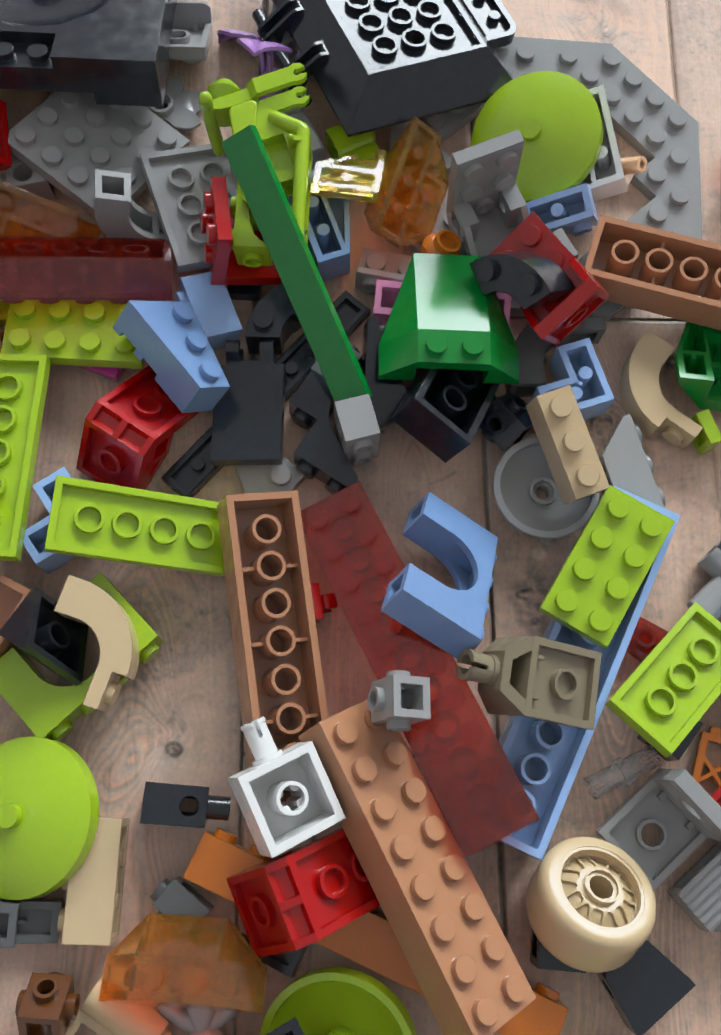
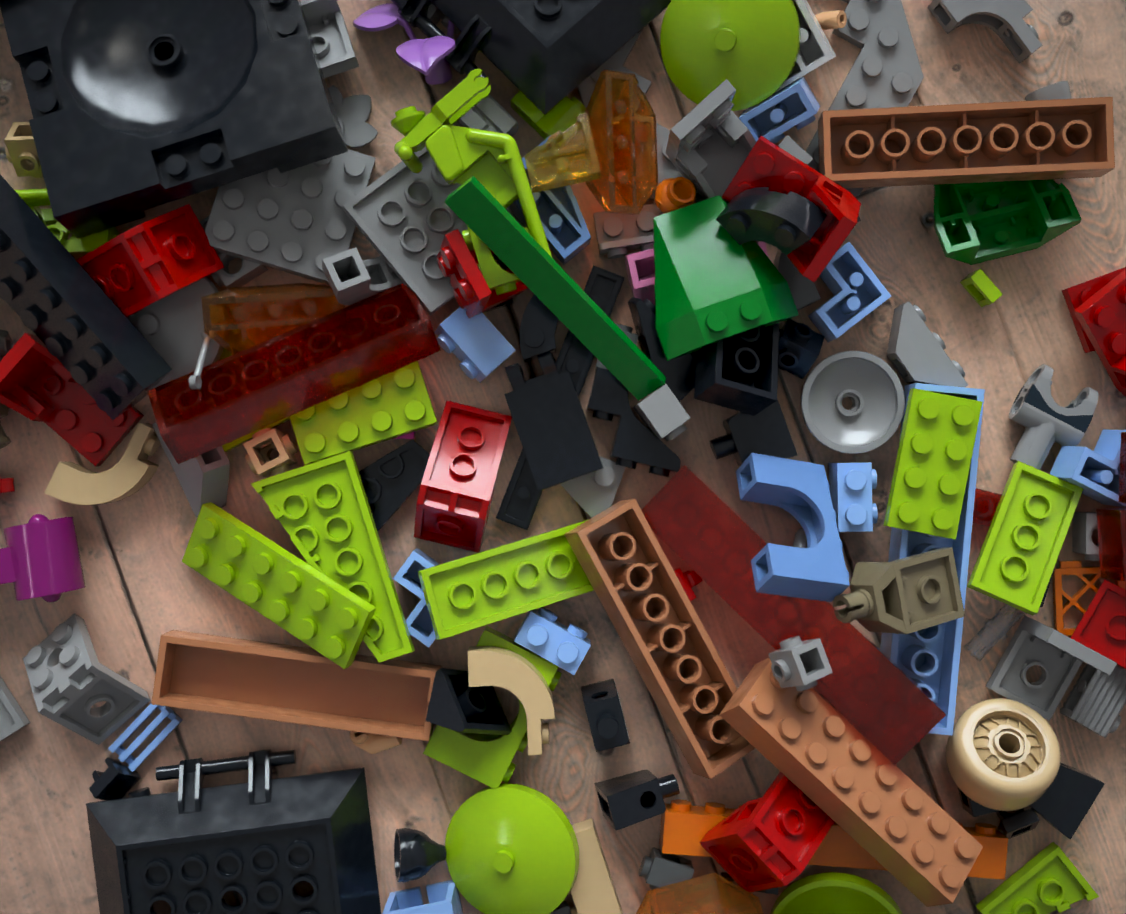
camera: 15 degrees left, 15 degrees up
(67, 409) = (393, 480): none -> black wing
(164, 612) = (553, 640): none -> light blue brick
(177, 351) = (469, 403): medium blue wedge -> none
(183, 711) = (605, 715): none -> black torso
(261, 786) = (728, 768): white brick -> none
(448, 481) = (759, 434): none -> black torso
(515, 578) = (852, 496): none -> light blue brick
(567, 445) = (864, 365): tan brick -> none
(585, 999) = (1018, 822): none -> black tile
(643, 397) = (909, 265): tan arch -> none

